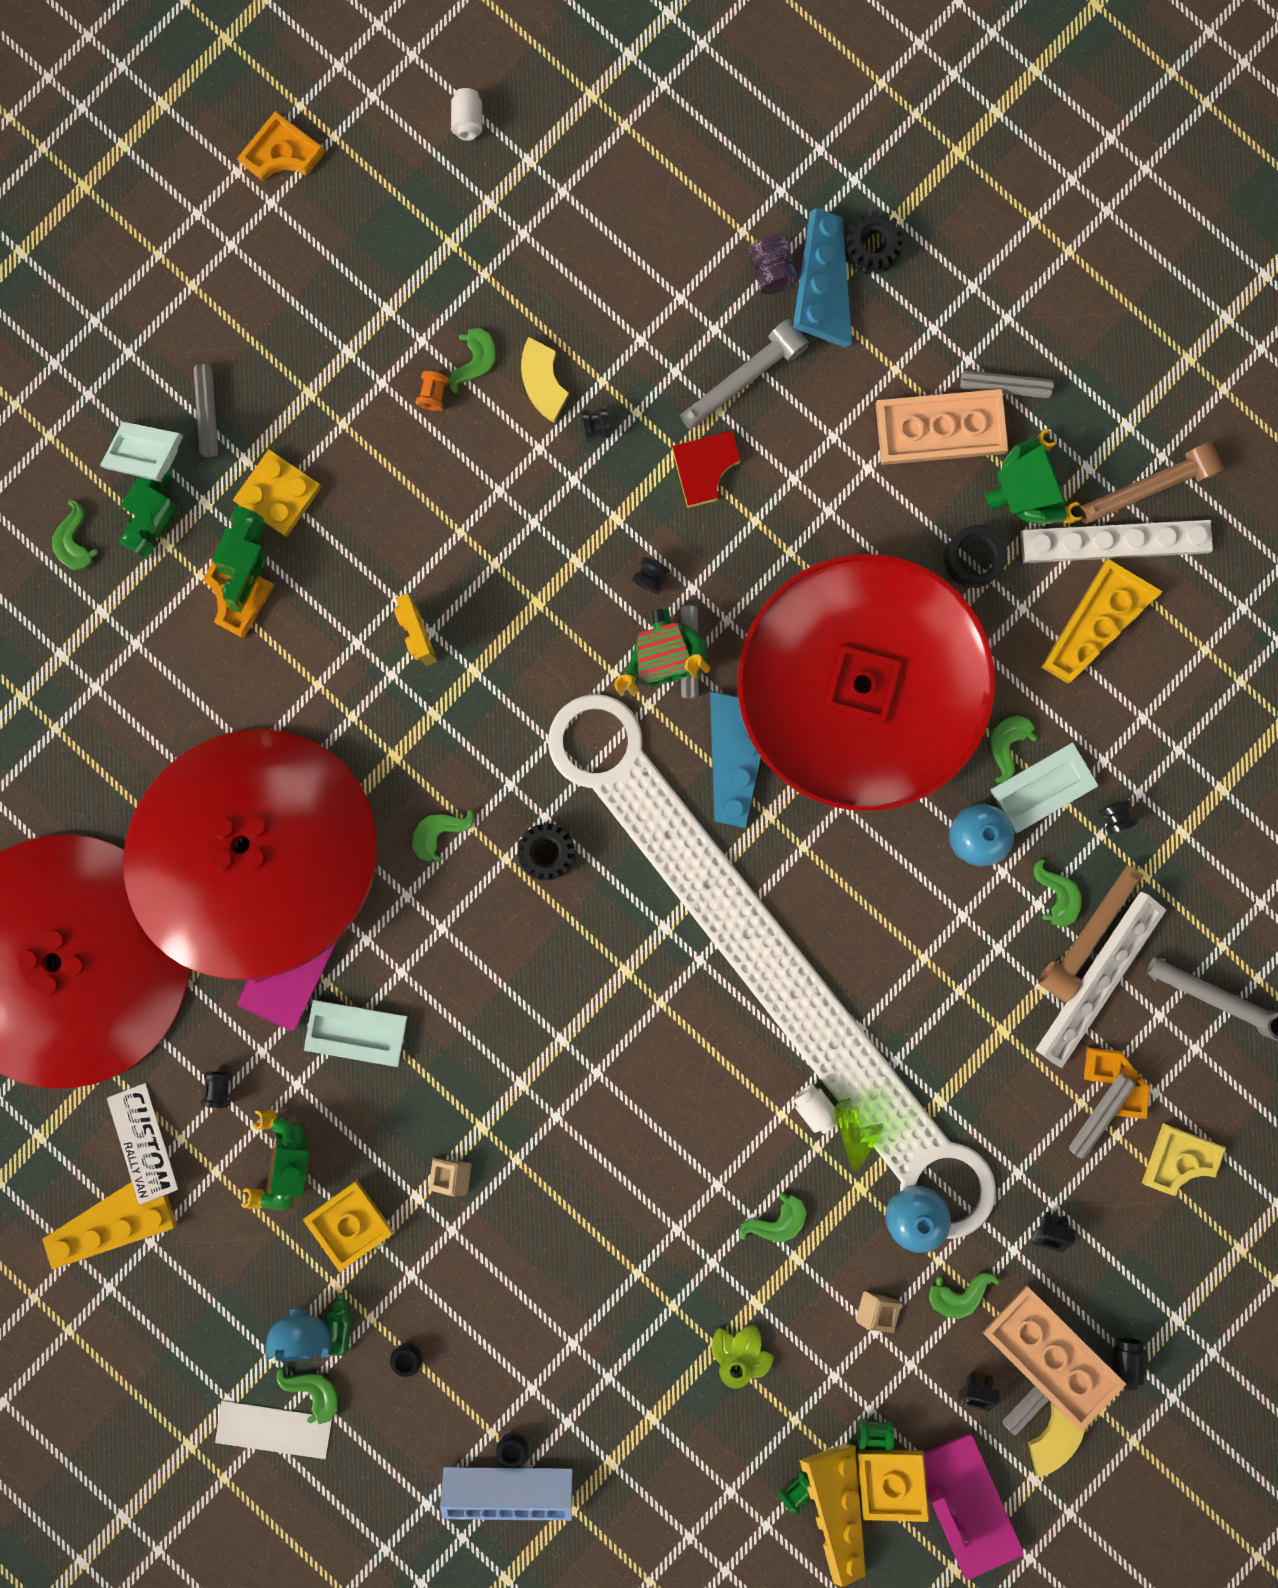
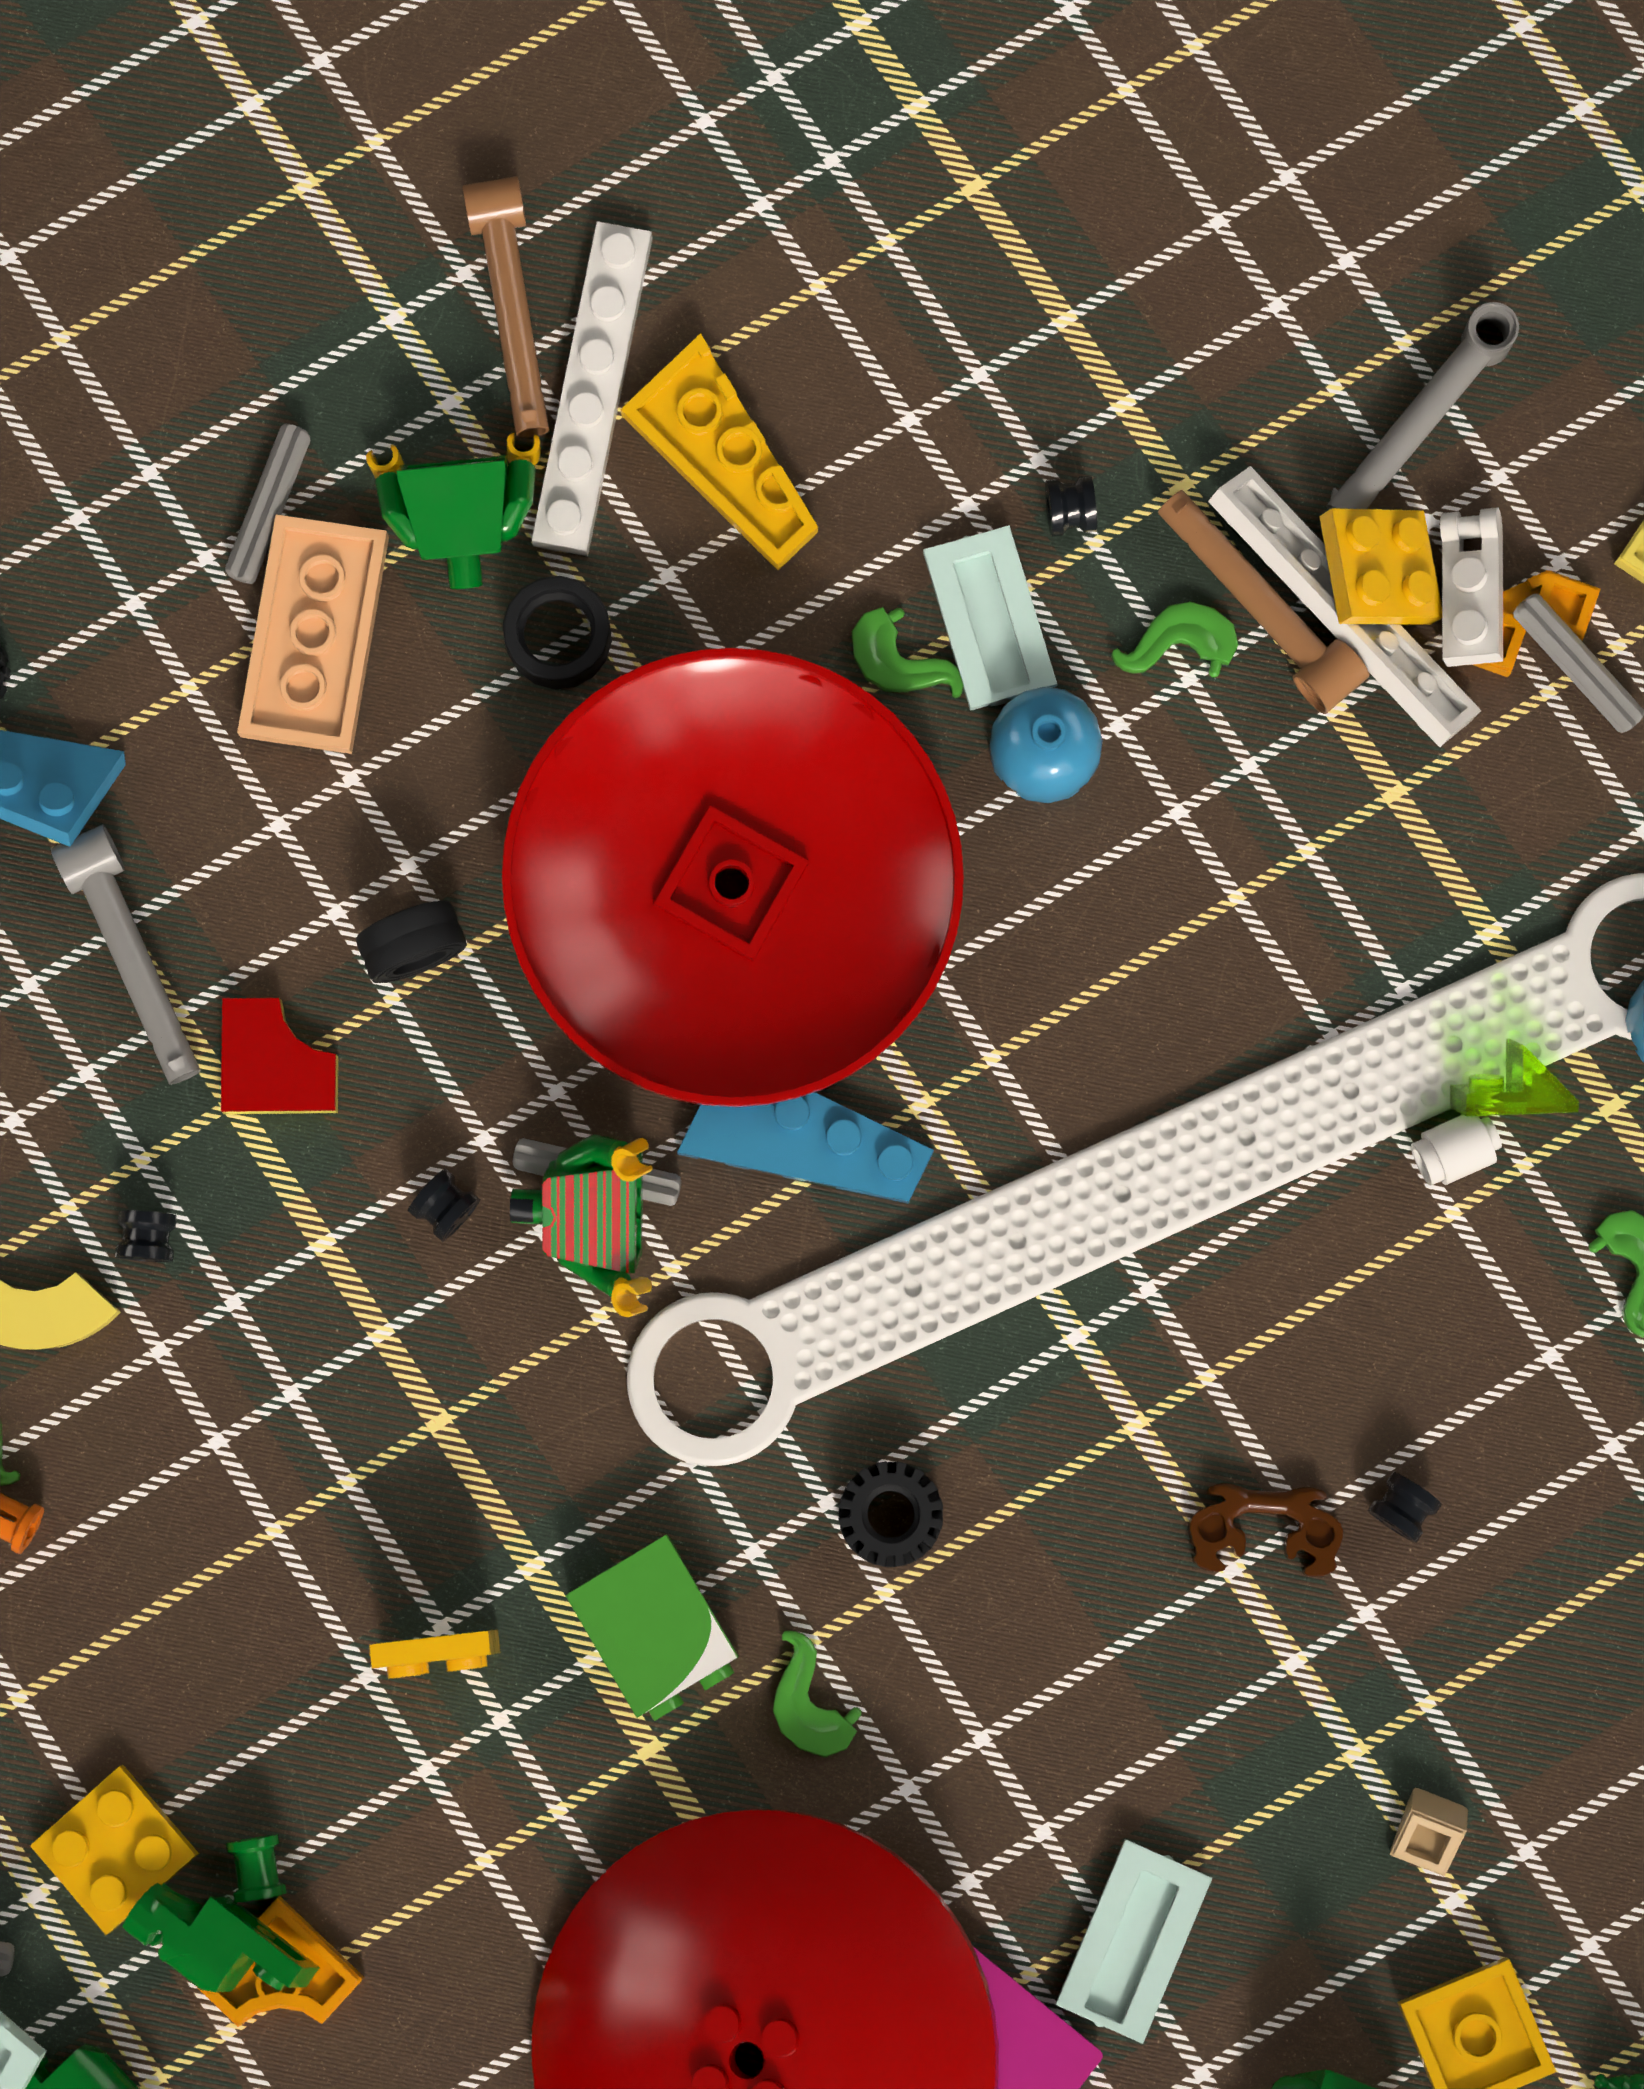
camera: 75 degrees left, 5 degrees down
(284, 567) = (256, 1868): none -> green bush
(455, 741) = (653, 1629): none -> bright green panel
(590, 1080) = (1316, 1533): none -> reddish brown helmet
(616, 1124) = (1404, 1507): none -> black wheel
(787, 521) = (411, 941): none -> black tyre
(1128, 995) = (1381, 566): none -> yellow plate
(1128, 1048) = (1472, 589): none -> white plate

